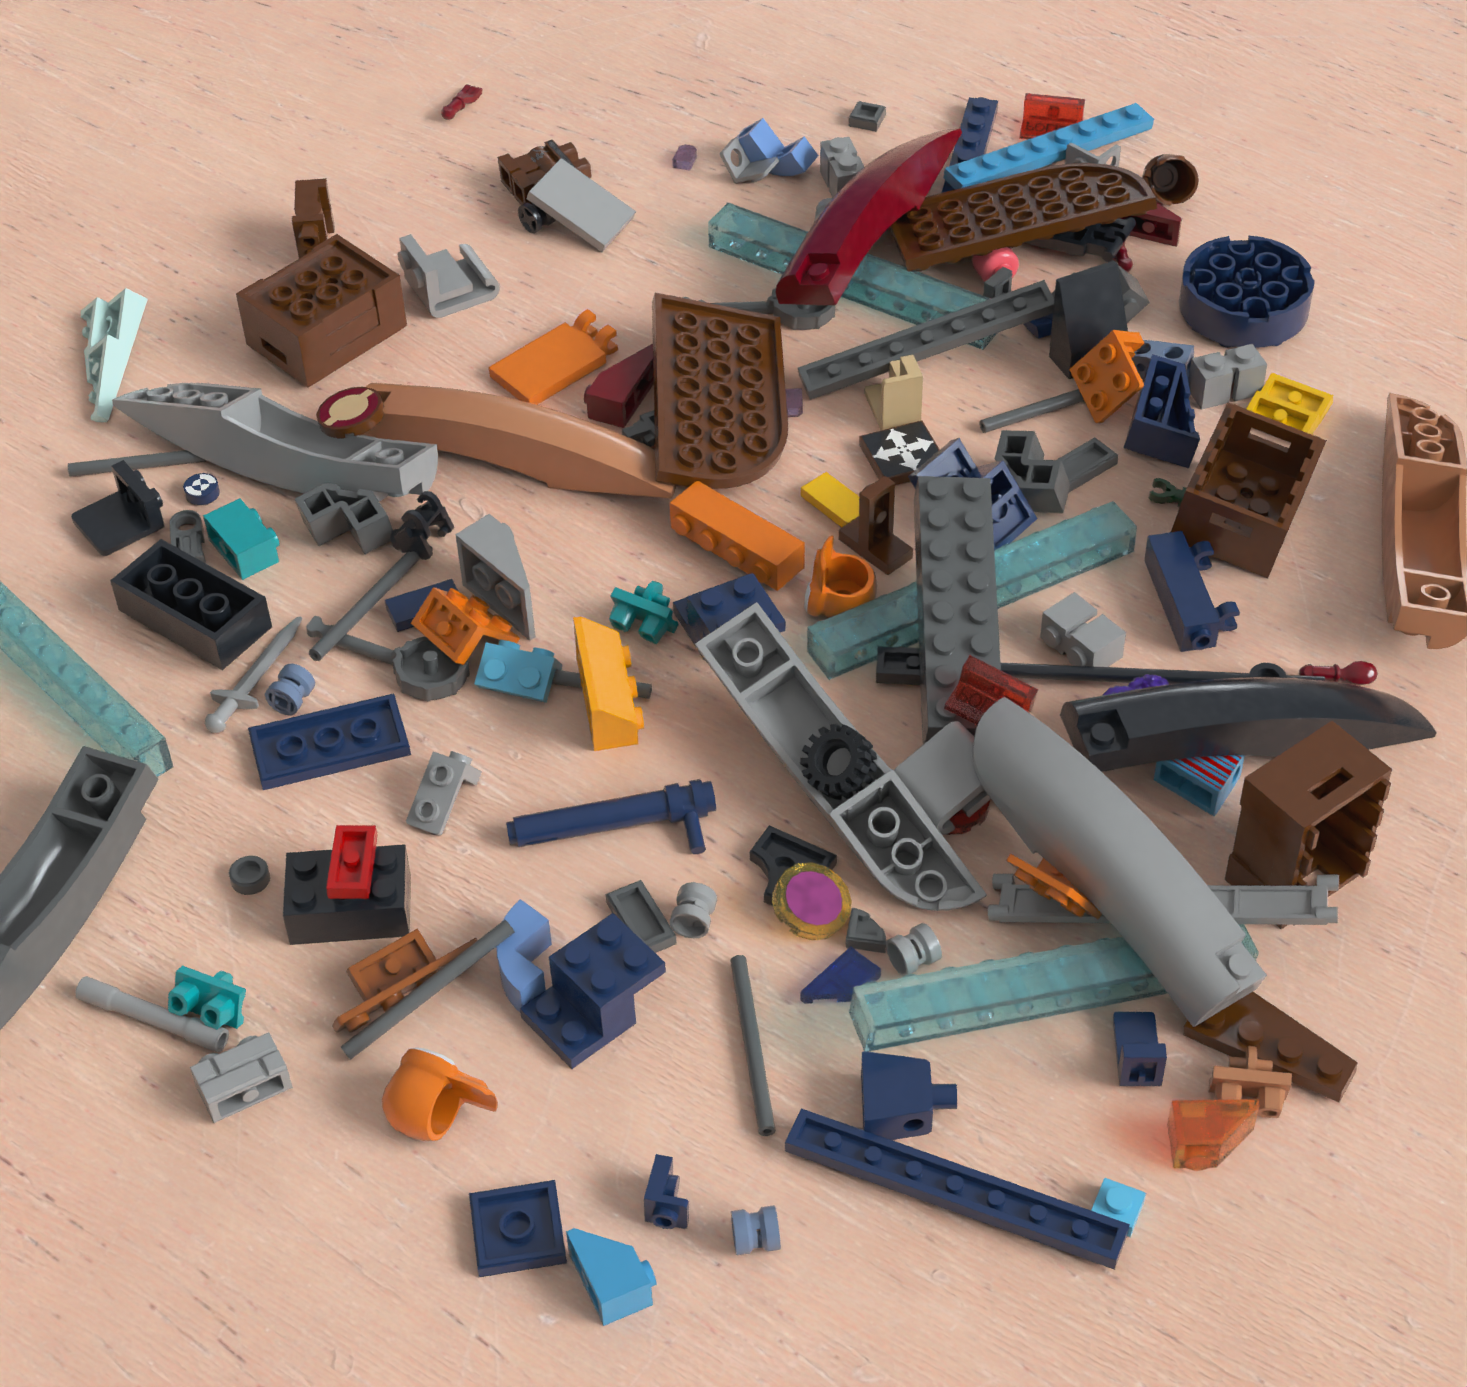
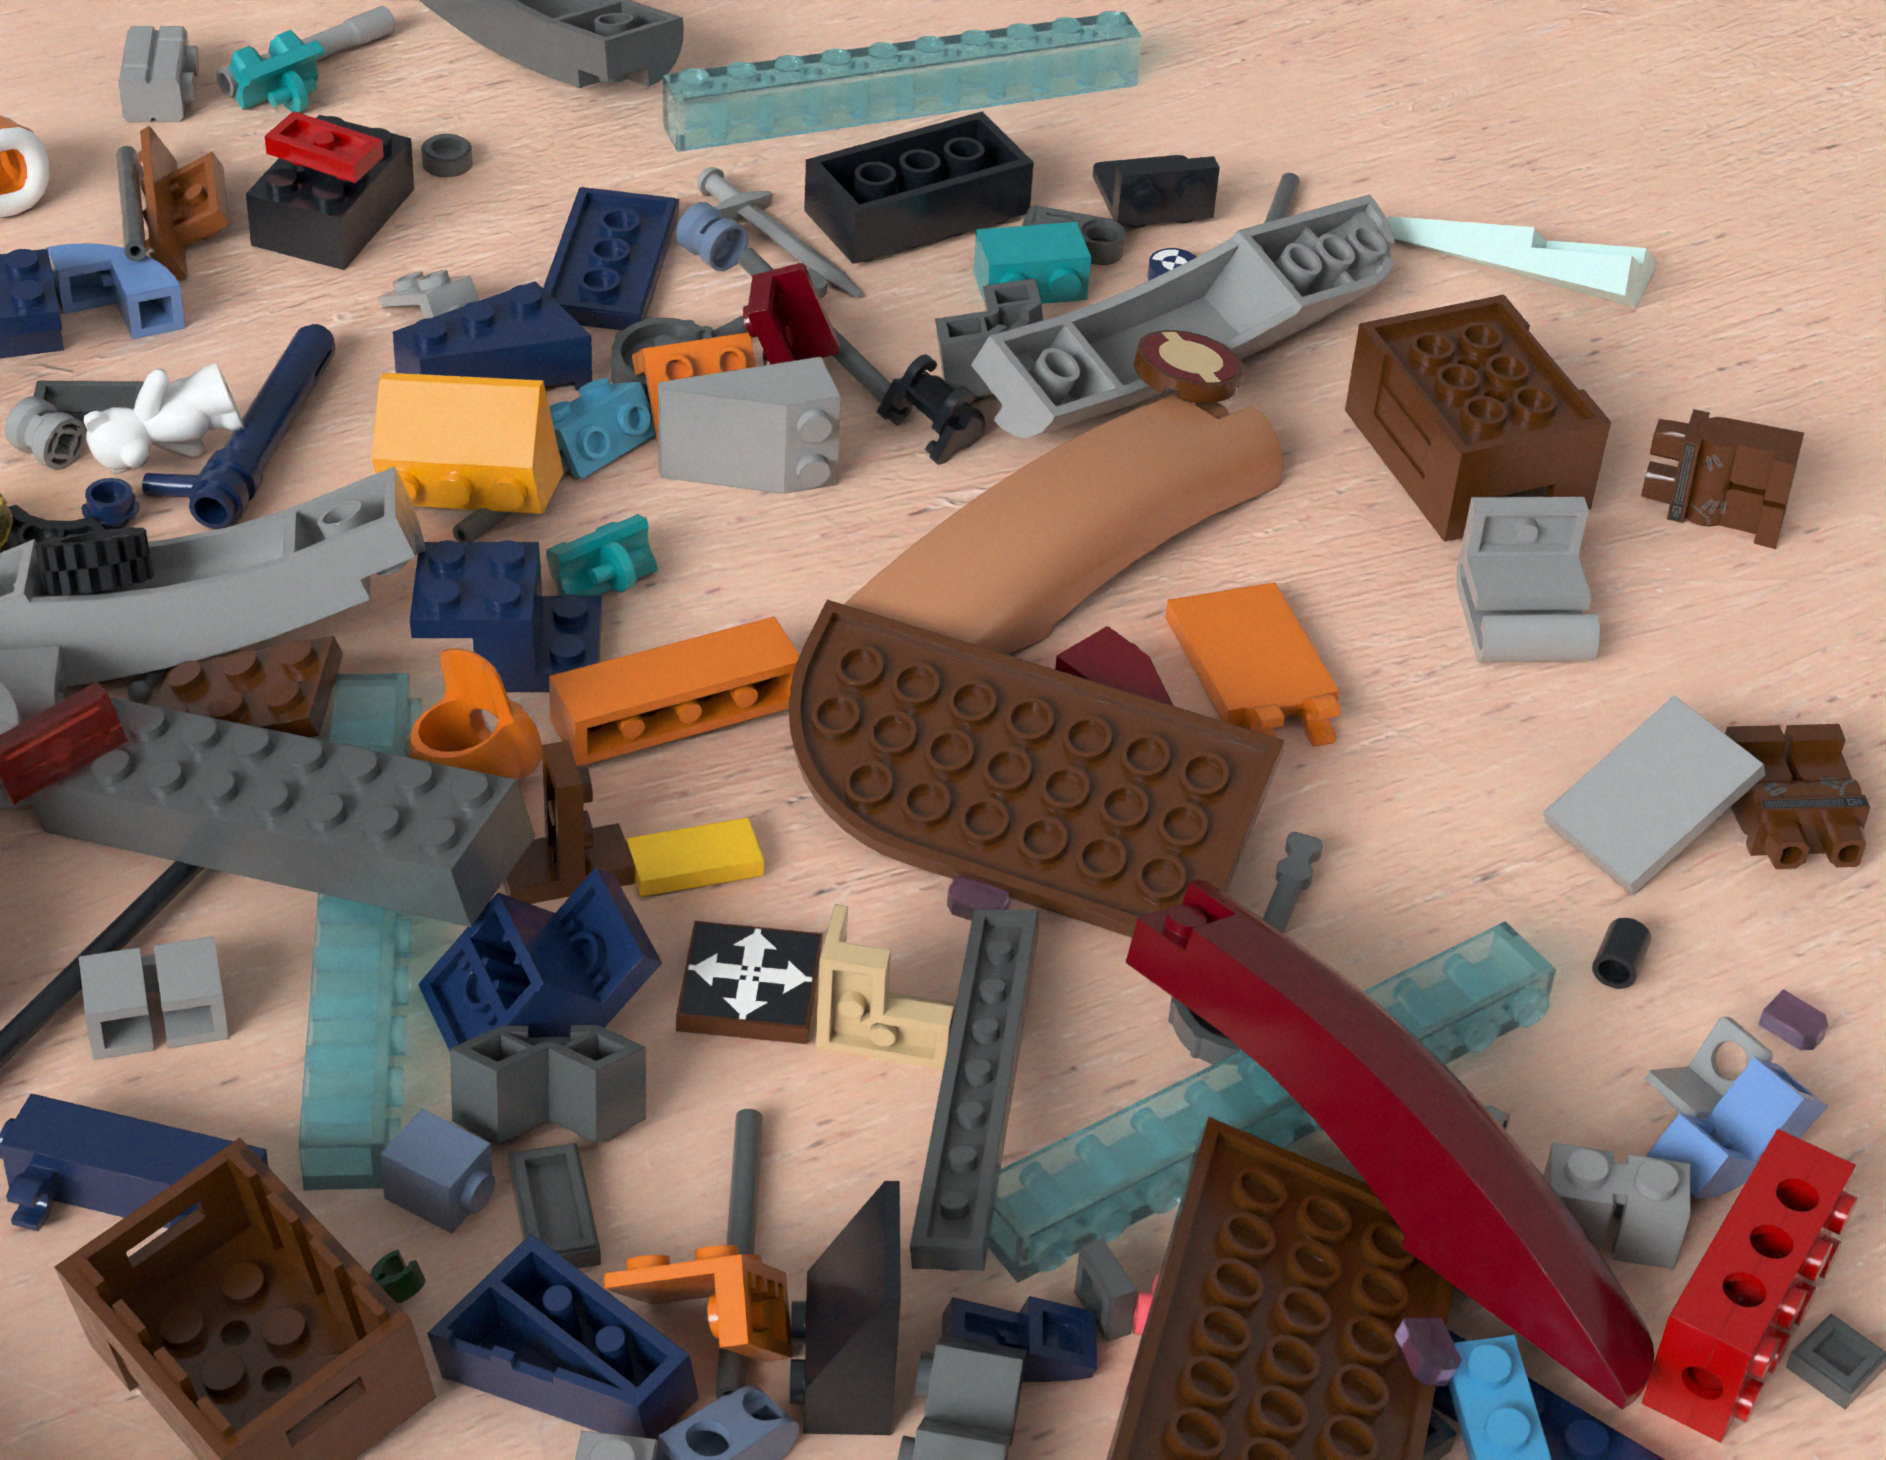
camera: 110 degrees right, 5 degrees down
(412, 581) = (788, 316): none -> dark red bracket
(479, 727) = (501, 337): none -> dark blue wedge
(661, 828) = (163, 416): none -> white piece
(683, 205) = (1621, 953): none -> black hinge
(730, 844) = (110, 502): none -> dark blue plate
(868, 690) = (263, 688): none -> reddish brown plate
(869, 115) = (1751, 1287): none -> red brick
(973, 182) = (1428, 1350): none -> clear purple piece
(1100, 488) = (437, 1171): none -> sand blue brick

